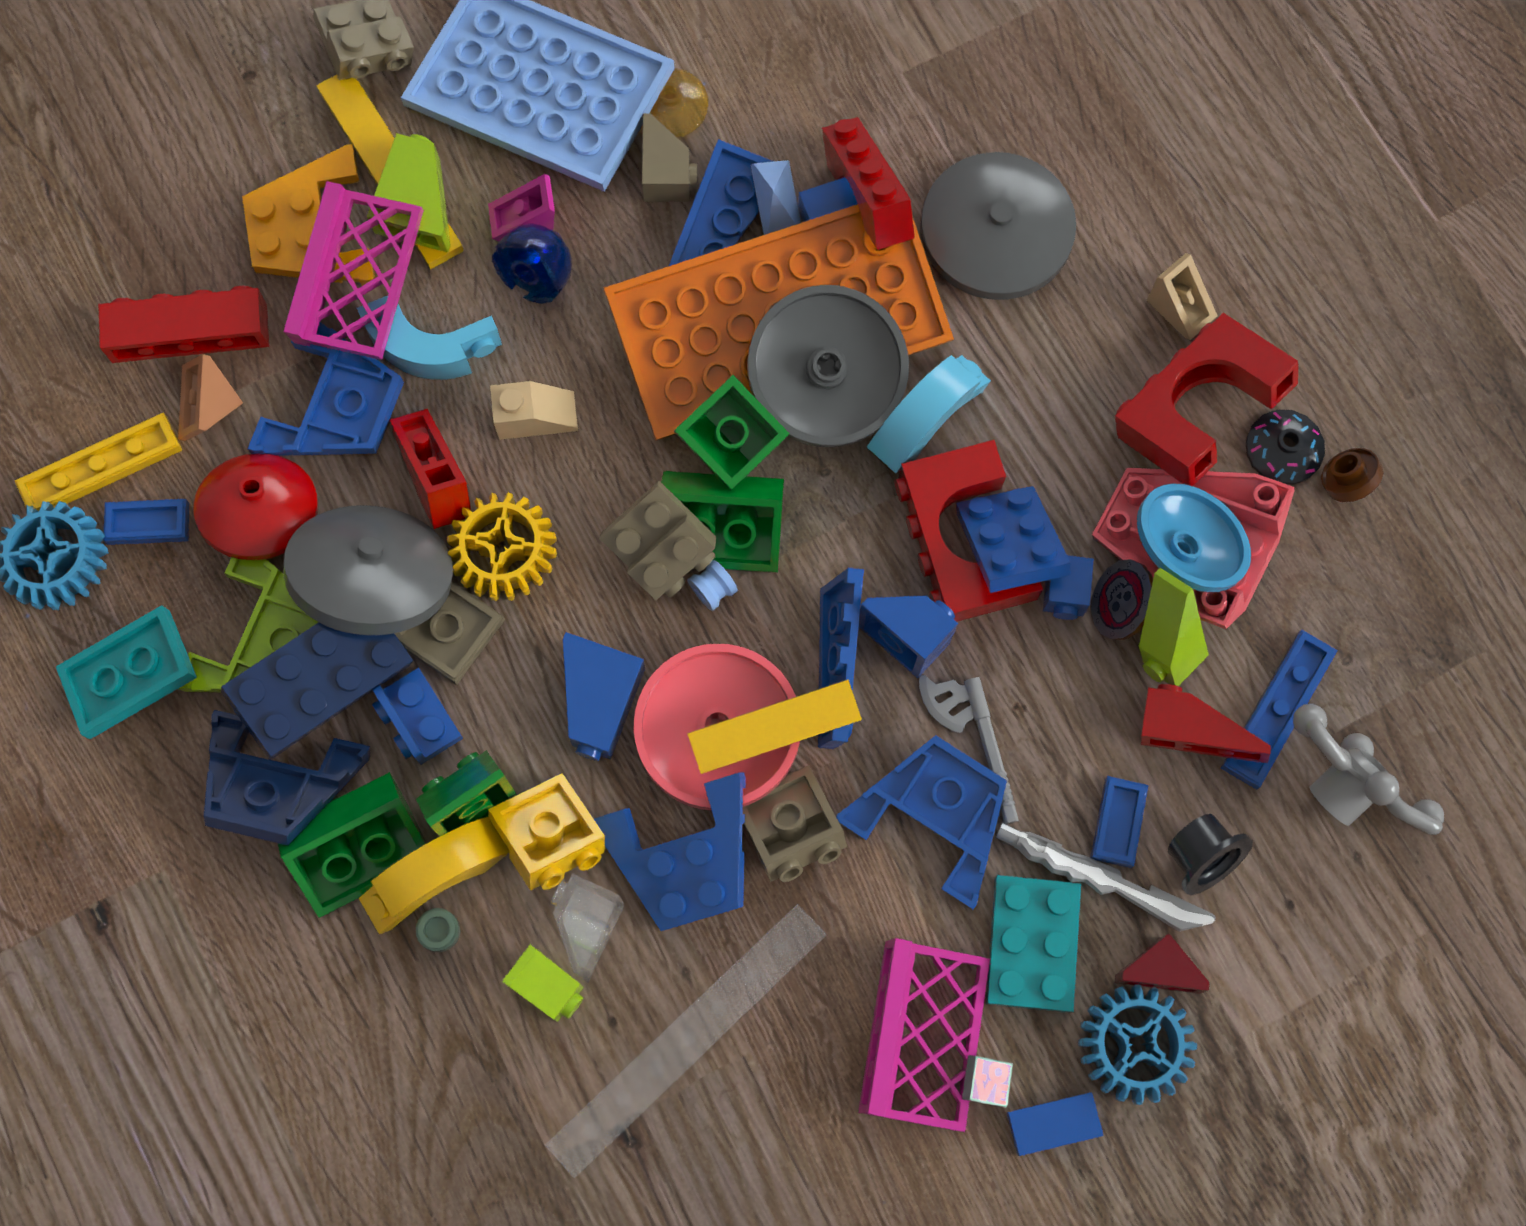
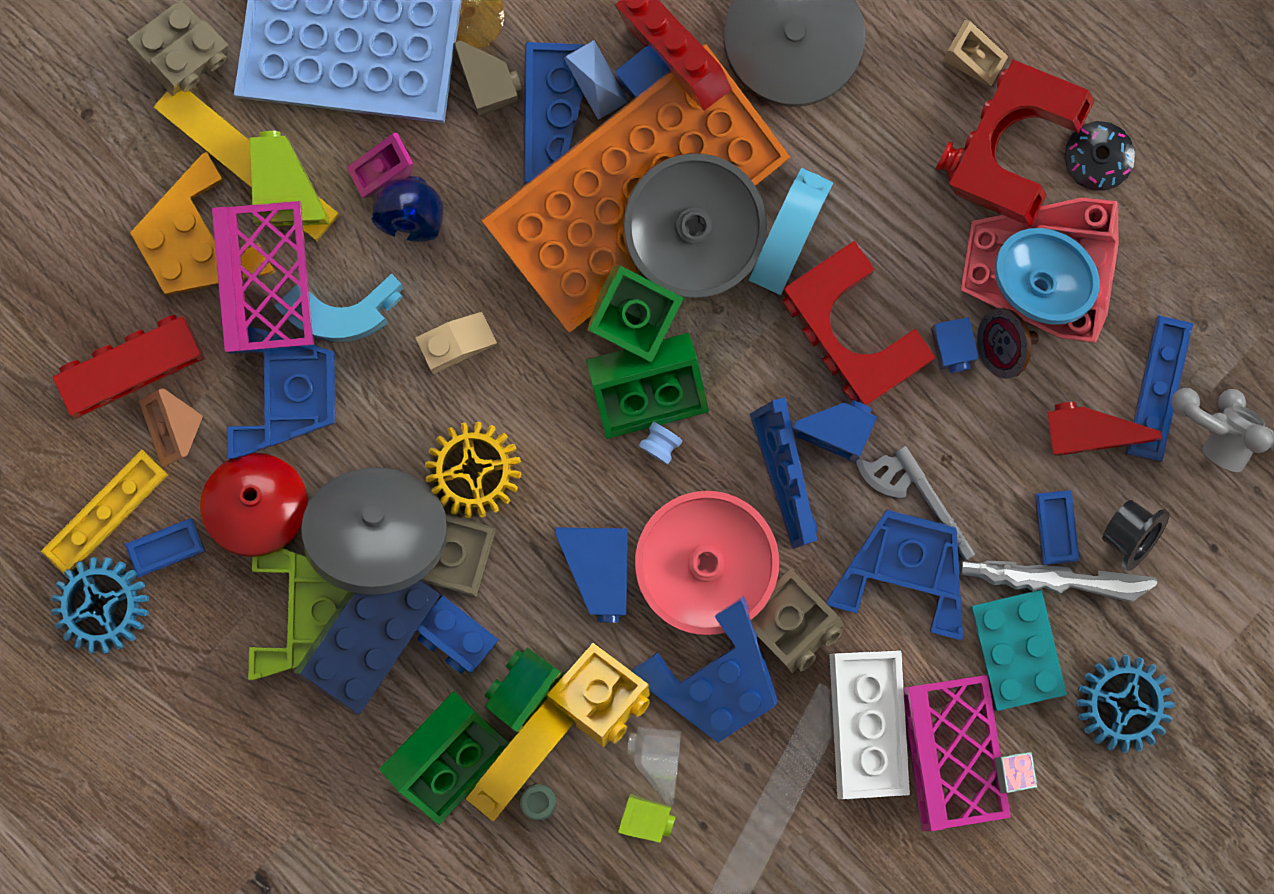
camera: 15 degrees left, 10 degrees up
(125, 672) = (205, 682): teal plate -> none
(269, 796) = (363, 745): dark blue wing -> none
(431, 468) = (388, 421): red slope -> none
(660, 541) = (606, 425): dark tan plate -> none
(774, 726) = (755, 550): yellow tile -> none
(837, 968) = (869, 724): none -> white plate
(1012, 539) = (897, 322): blue plate -> none
(1054, 1124) = (1079, 787): blue tile -> none
(1122, 393) = (949, 158): none -> red bush
(1164, 967) = (1127, 635): dark red slope -> none
(1172, 631) = (1052, 362): lime slope -> none
(1352, 475) = (1162, 167): reddish brown plate -> none

